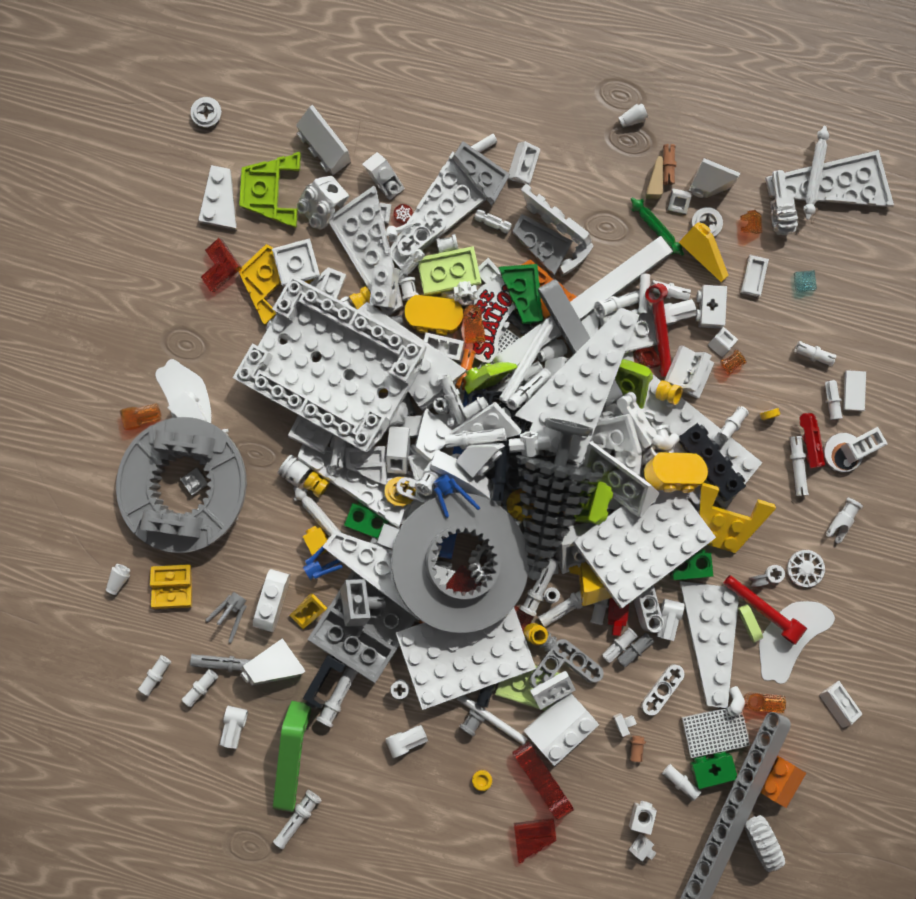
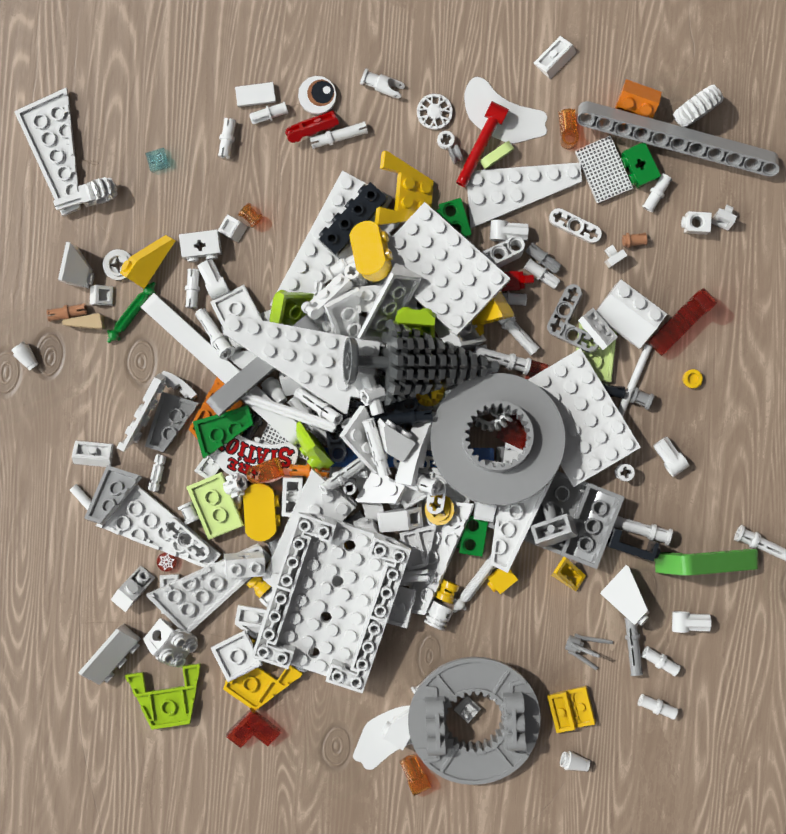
camera: 105 degrees left, 5 degrees up
(199, 107) = (98, 784): white gear -> none
(218, 199) = (188, 745): white wing -> none
(271, 600) = (566, 610): white brick -> none
(314, 569) = (530, 575): blue plant -> none
(393, 232) = (187, 568): white hand -> none
(408, 288) = (239, 541): white bush -> none
(409, 265) = (216, 544): white axle -> none
(445, 486) = (428, 467): blue plant -> none
(475, 407) = (346, 452): white pin -> none
(533, 836) = (734, 321): clear red wing -> none
(540, 636) = (547, 354): yellow brick -> none
(550, 642) = (552, 342): light grey bush -> none
(555, 591) = (513, 346): white pin -> none
(643, 302) = (201, 312): white piece -> none
(648, 357) = (263, 297): clear red plate -> none
(660, 325) = (231, 290): red piece -> none
(666, 443) = (345, 265): white arm -> none
(668, 392) = (293, 272): yellow wheel -> none
(690, 370) = (268, 255): white bracket -> none
(732, 424) = (311, 205): white pin -> none
(738, 702) = (573, 153): white arm -> none
(754, 222) = (109, 219): clear orange tile -> none
(754, 276) = (161, 209): white tile -> none
(770, 414) = (294, 171): yellow tile -> none
(816, 172) = (48, 168): white wheel -> none
(854, 453) = (316, 85): white slope -> none

